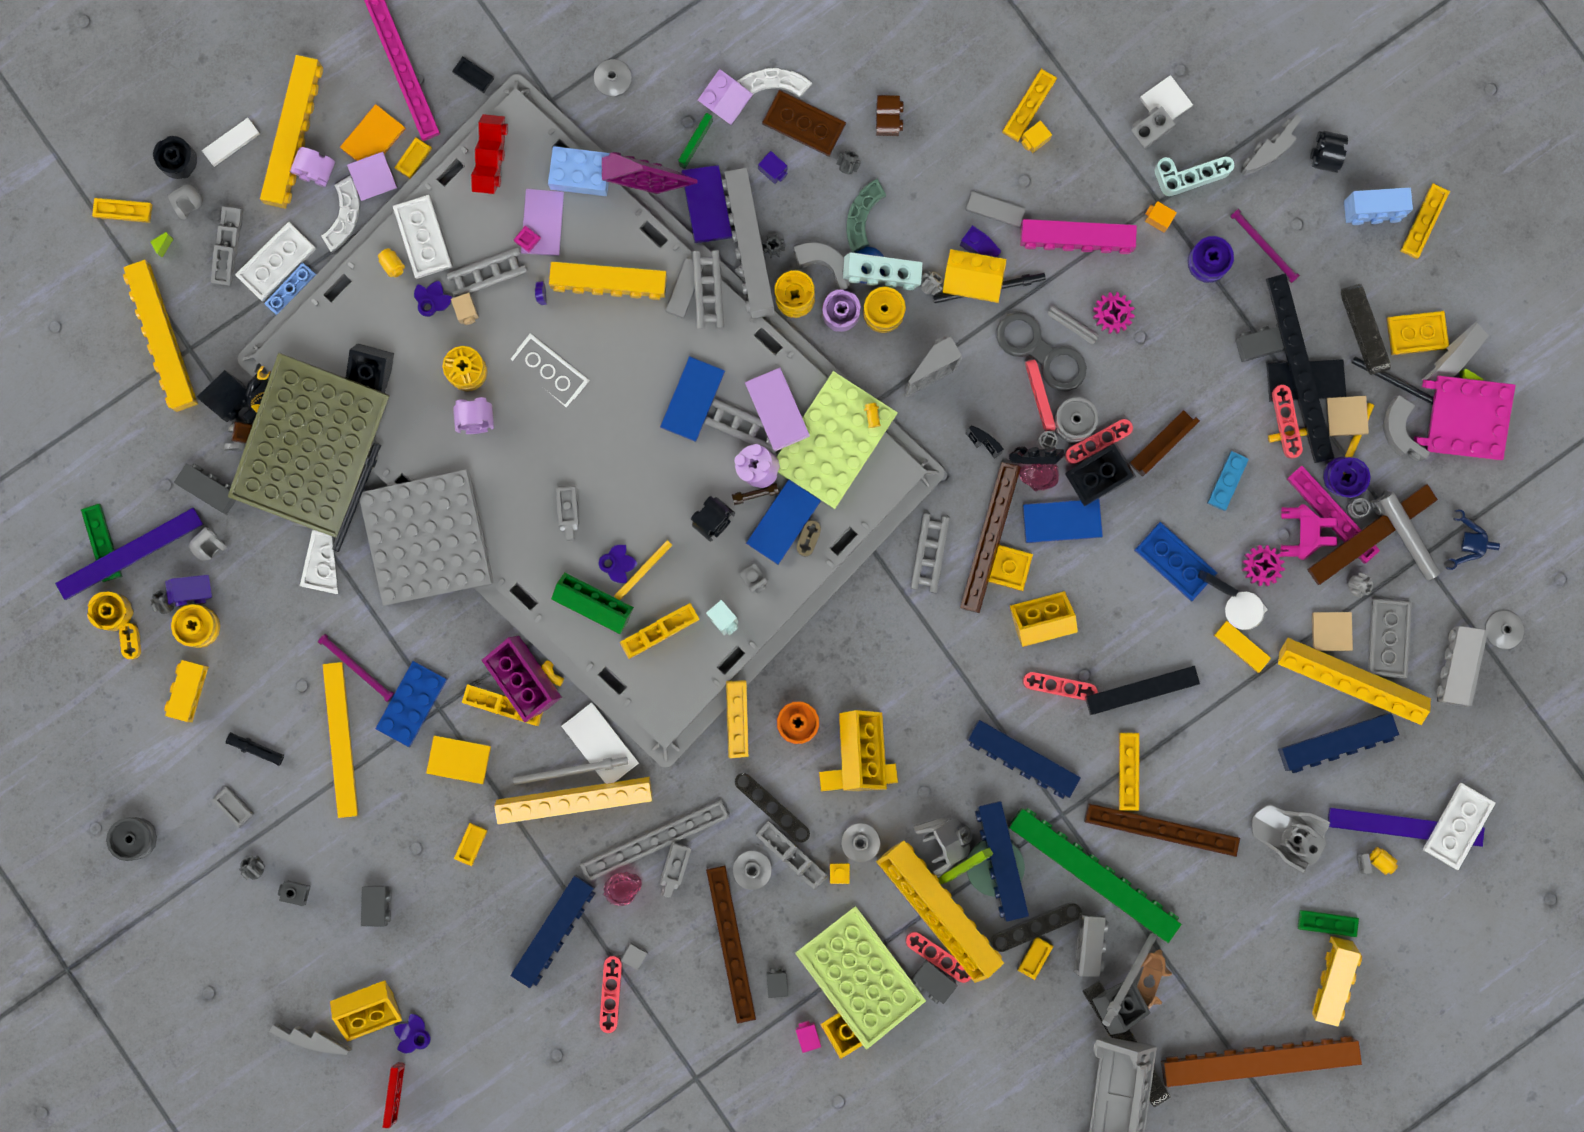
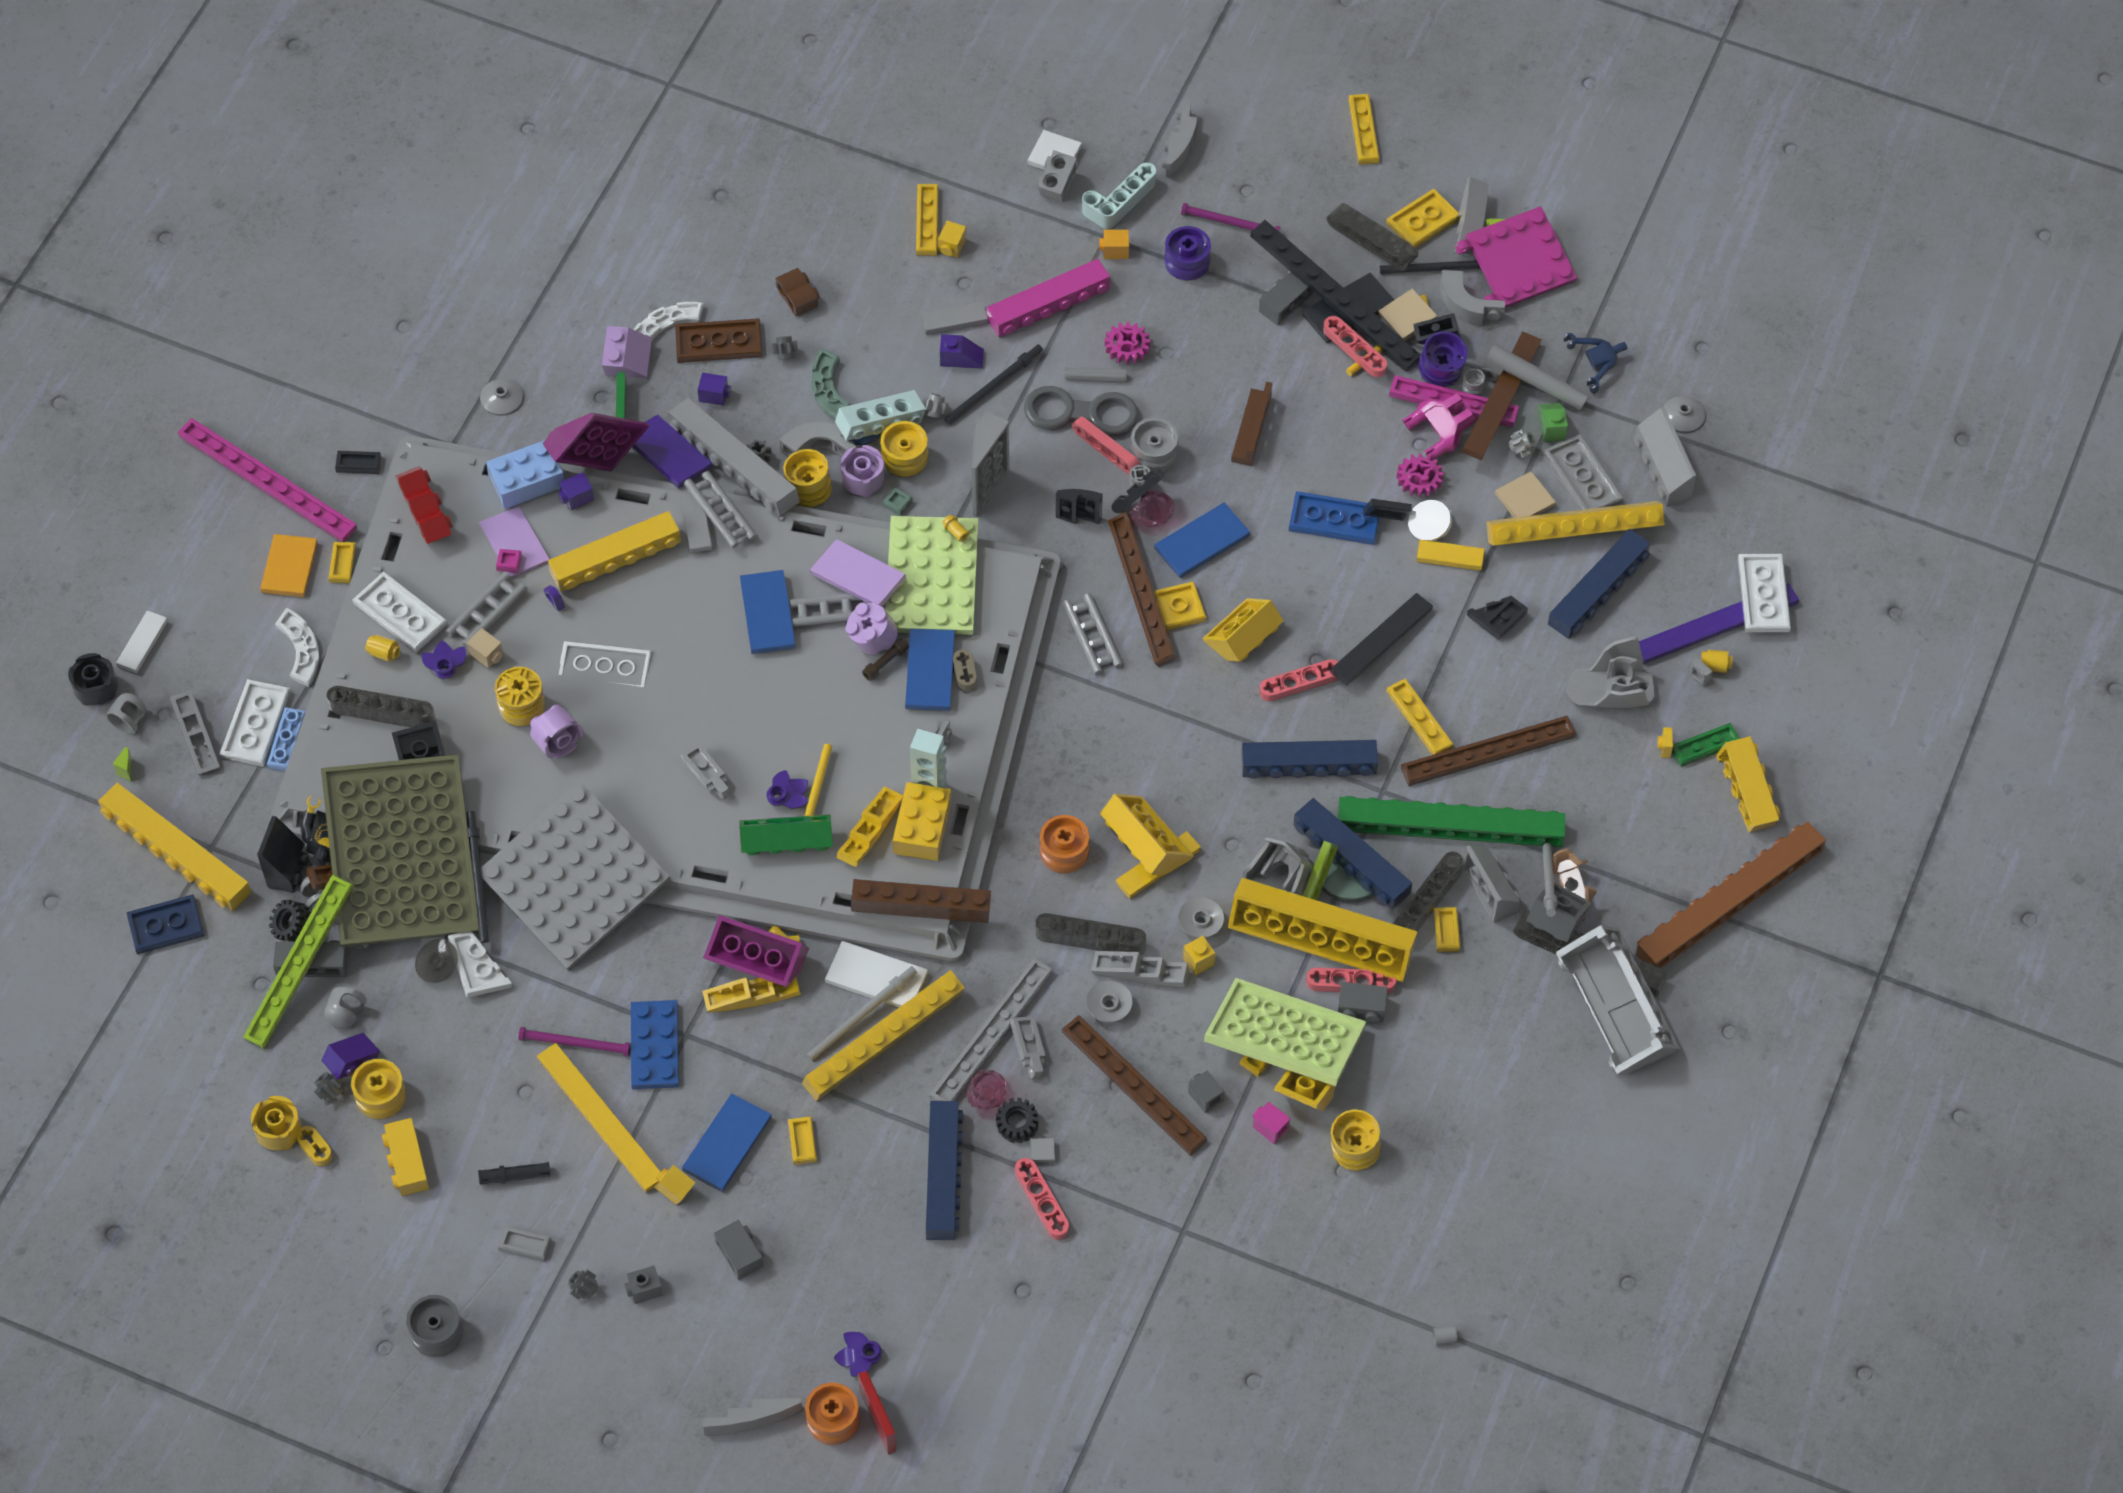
camera: 30 degrees left, 25 degrees down
(98, 534) = (225, 1071): green tile -> none
(122, 210) = (62, 759): yellow tile -> none
(122, 395) = (165, 924): none -> dark blue tile
(129, 554) = (263, 1062): dark purple tile -> none
(192, 490) = (298, 961): none -> lime tile
(206, 451) = (281, 919): none -> black tyre
(287, 544) = (431, 955): none -> clear smoke dish
(291, 131) = (201, 600): yellow brick -> none
(312, 166) = (244, 613): lavender brick -> none
(354, 1079) = (832, 1413): none -> orange wheel
(357, 307) = (372, 701): none -> clear smoke beam
(358, 829) = (673, 1184): none -> yellow brick
(365, 1011) = (794, 1355): yellow slope -> none
(372, 176) = (310, 595): lavender tile -> none
(417, 813) = (726, 1142): none -> blue tile
(458, 759) = (738, 1068): yellow tile -> none
(609, 208) = (576, 491): none -> dark purple brick
(619, 929) = (1014, 1107): none -> black tyre
(658, 717) = (920, 900): none -> reddish brown brick
(698, 651) = (922, 821): none -> yellow brick
(712, 518) = (857, 695): black brick -> none
(737, 718) = (1001, 872): yellow tile -> none
(850, 1102) = (1355, 1128): none -> yellow wheel
(854, 349) = (897, 501): none -> sand green tile
(974, 275) = (972, 376): yellow slope -> none
(1097, 439) = (1191, 457): coral beam -> none
(1100, 474) = (1211, 477): black slope -> none
(1228, 481) = (1335, 426): dark azure plate -> none
(1244, 723) = (1498, 616): none -> black wing
(1298, 906) = (1665, 742): none -> yellow plate
(1329, 152) = (1235, 113): black brick -> none
(1359, 448) = (1426, 328): none -> black slope
(1378, 206) = (1310, 132): light blue brick -> none
(1398, 577) = (1553, 422): none -> bright green slope

